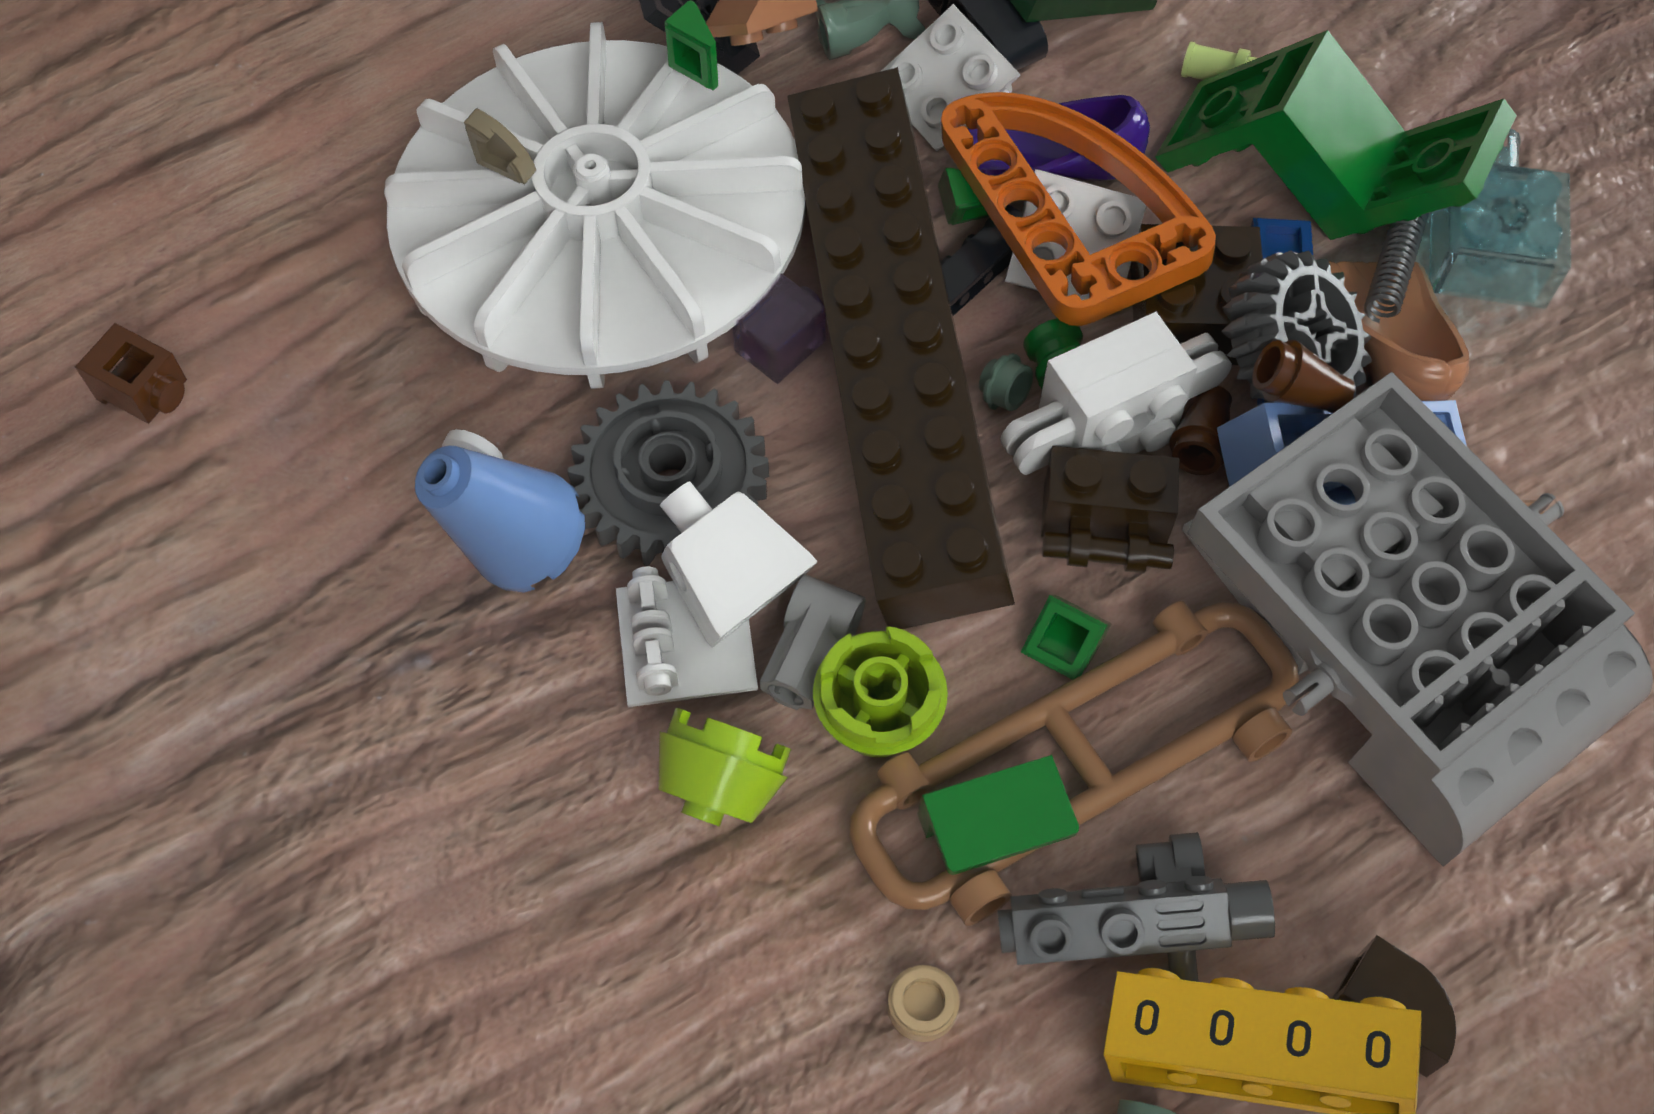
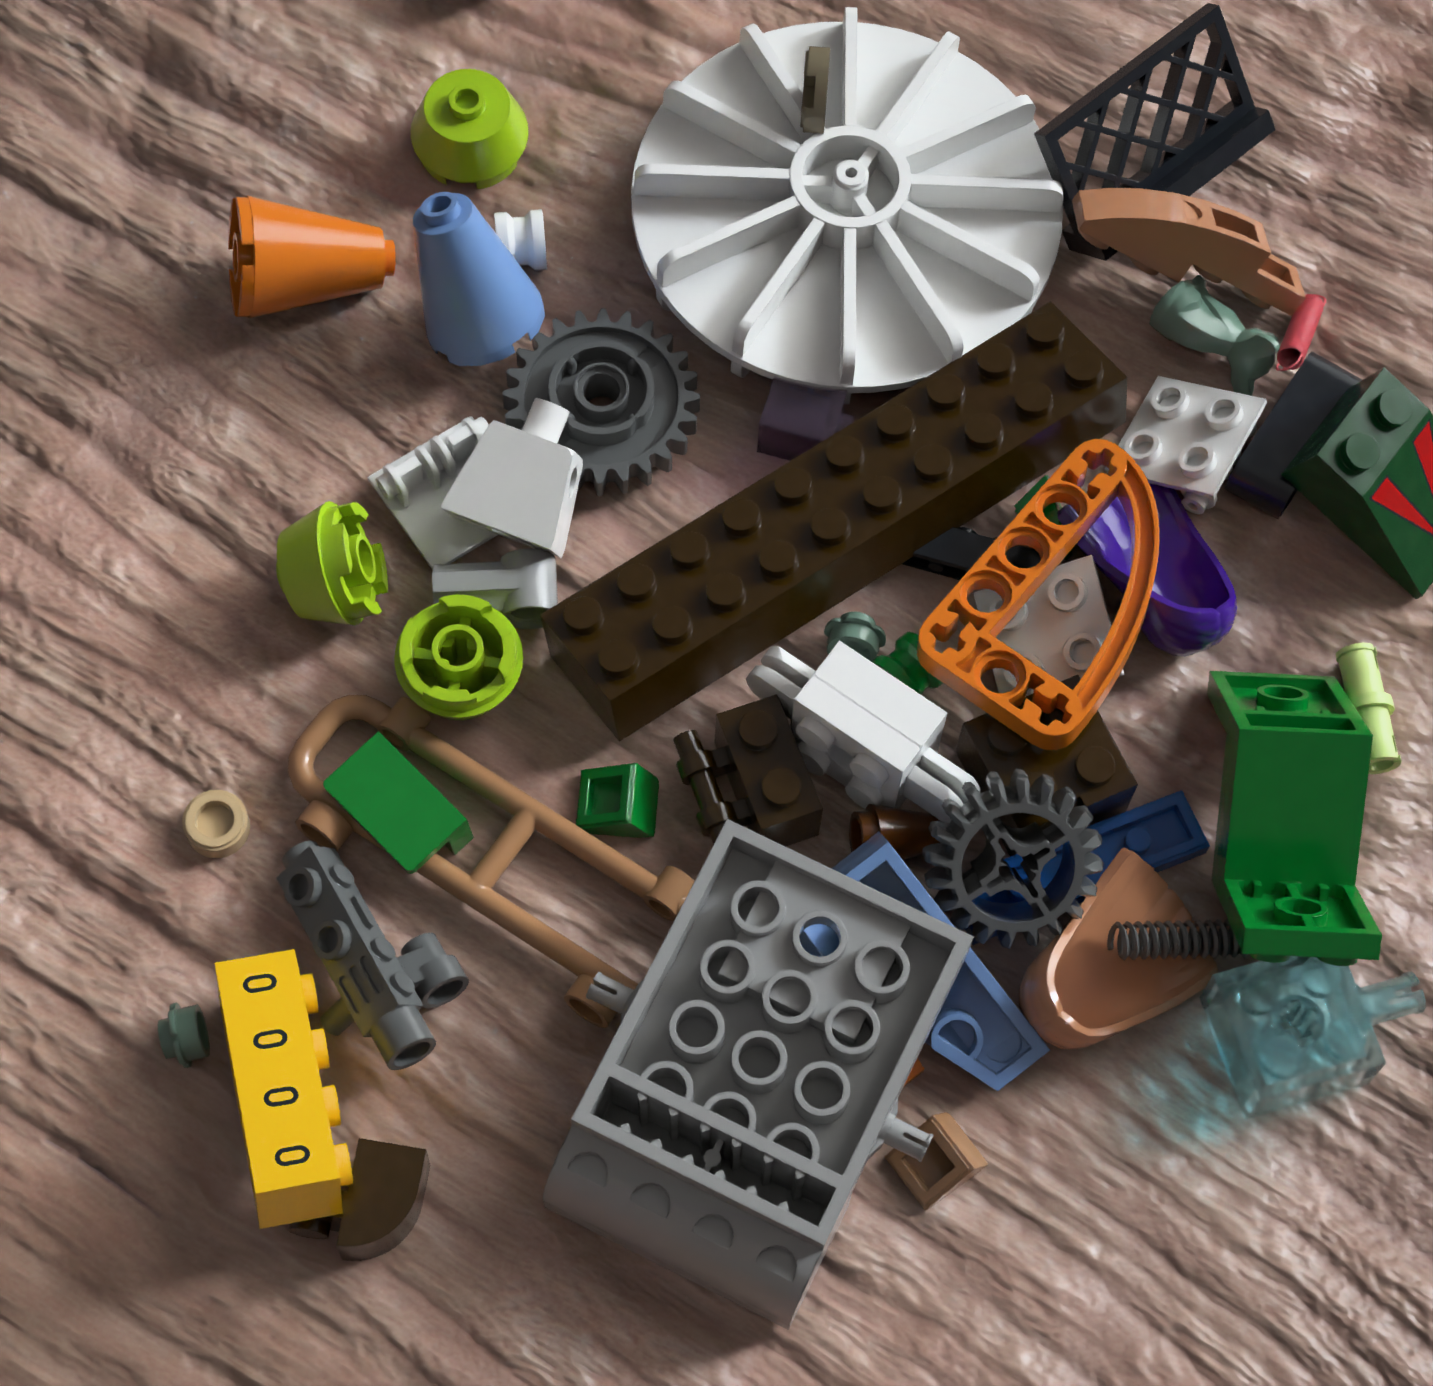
camera: 60 degrees right, 5 degrees up
(318, 460) = (469, 129): none -> lime cone
(360, 664) = (300, 257): none -> orange cone
(692, 46) = (1027, 186): green slope -> none
(1298, 377) = (928, 862): reddish brown cone -> none

